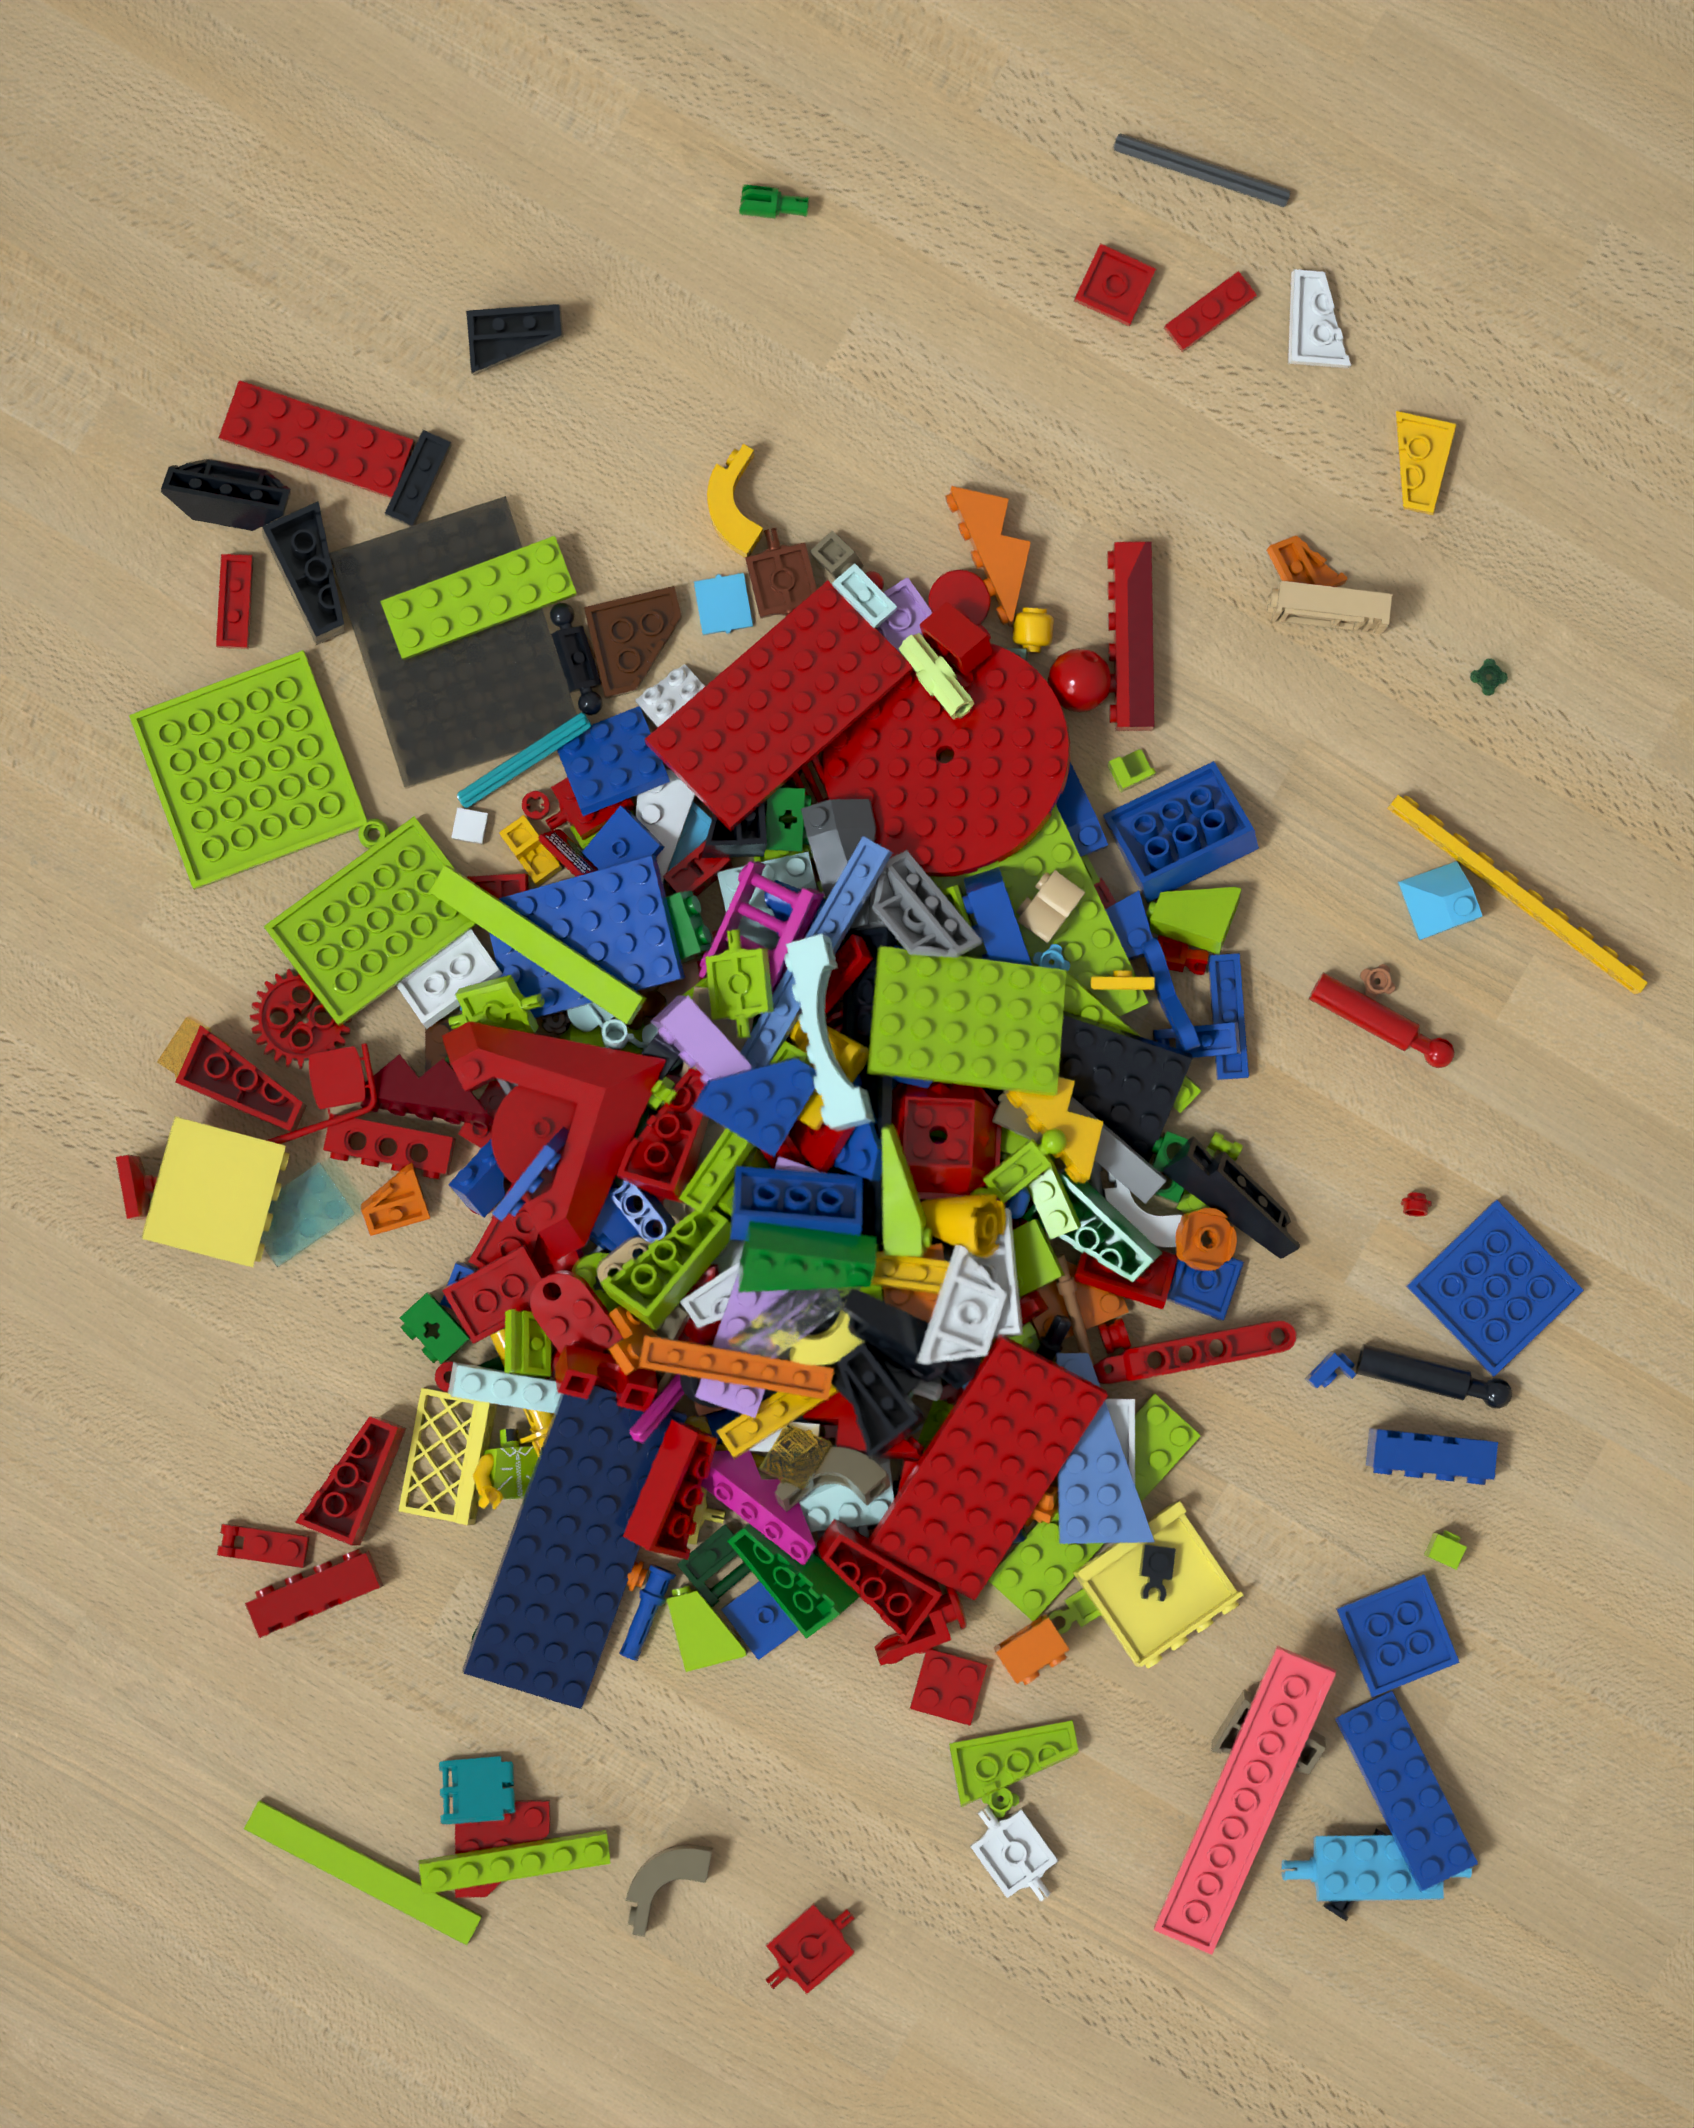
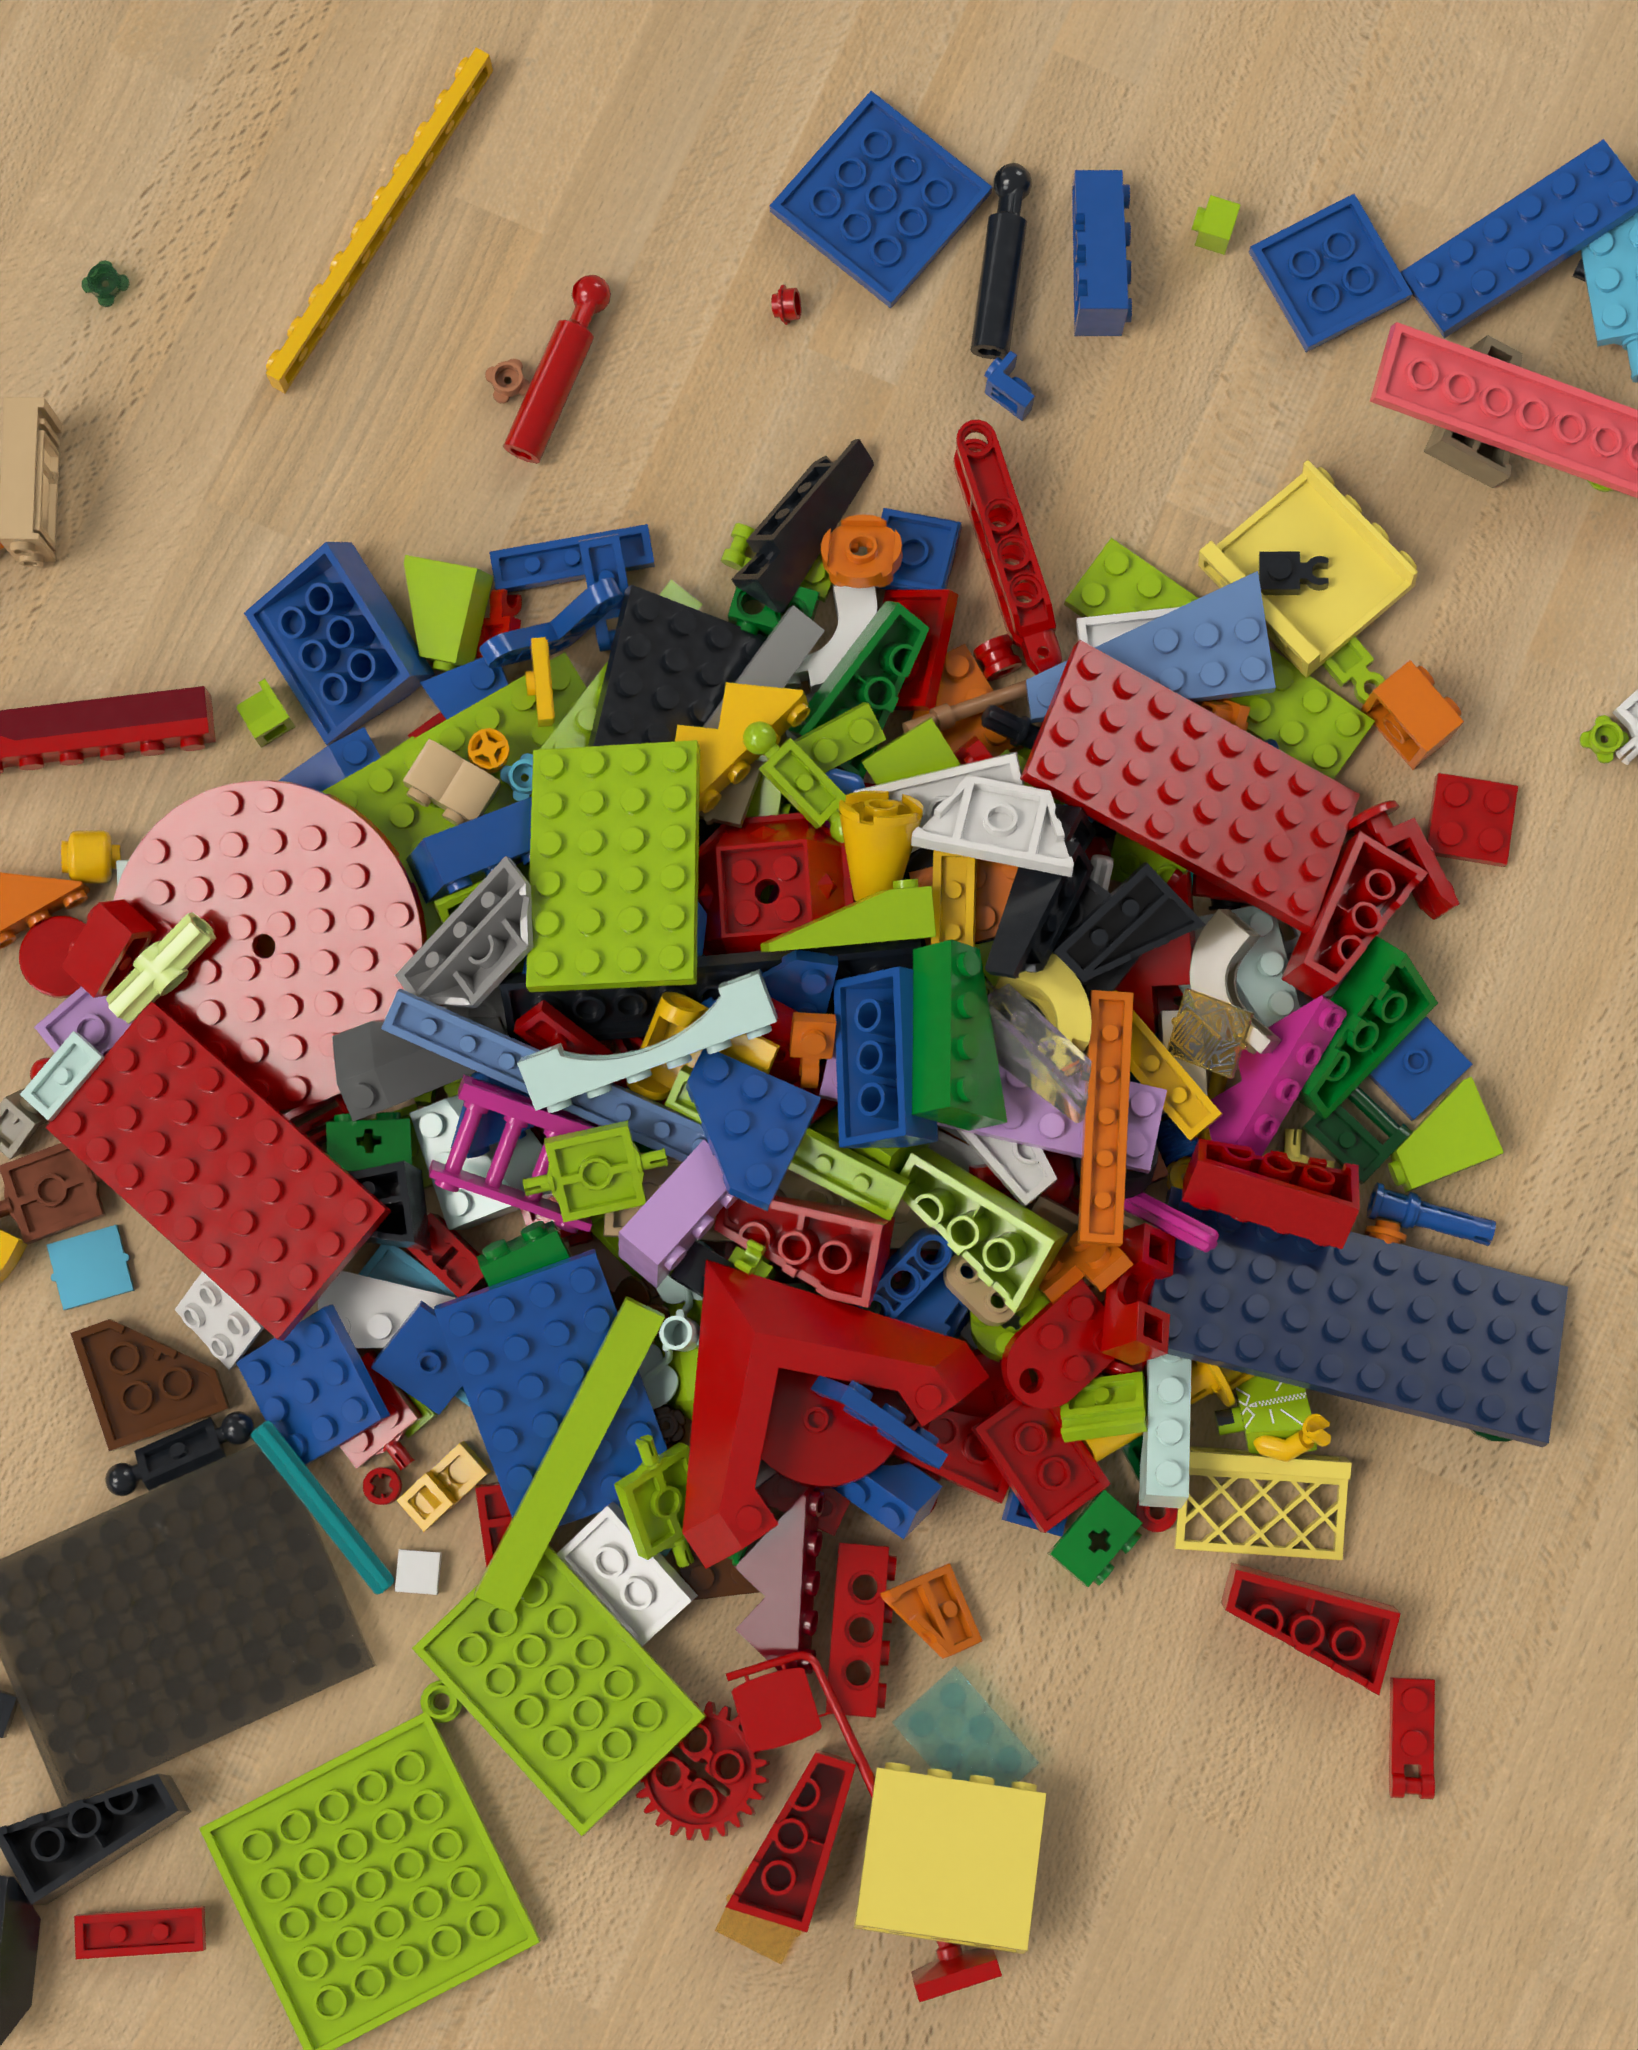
camera: 95 degrees left, 5 degrees down
(314, 1593) = (1467, 1660): red wedge -> none
(478, 598) = (107, 1594): lime plate -> none
(567, 852) = (443, 1433): slope -> none
(818, 1155) = (811, 1040): none -> orange plate
(1003, 1759) = (1555, 738): lime wing -> none
(1070, 934) = (486, 743): none -> light orange wheel
(1080, 680) = (149, 784): red piece -> none
(1440, 900) = (396, 312): medium azure slope -> none

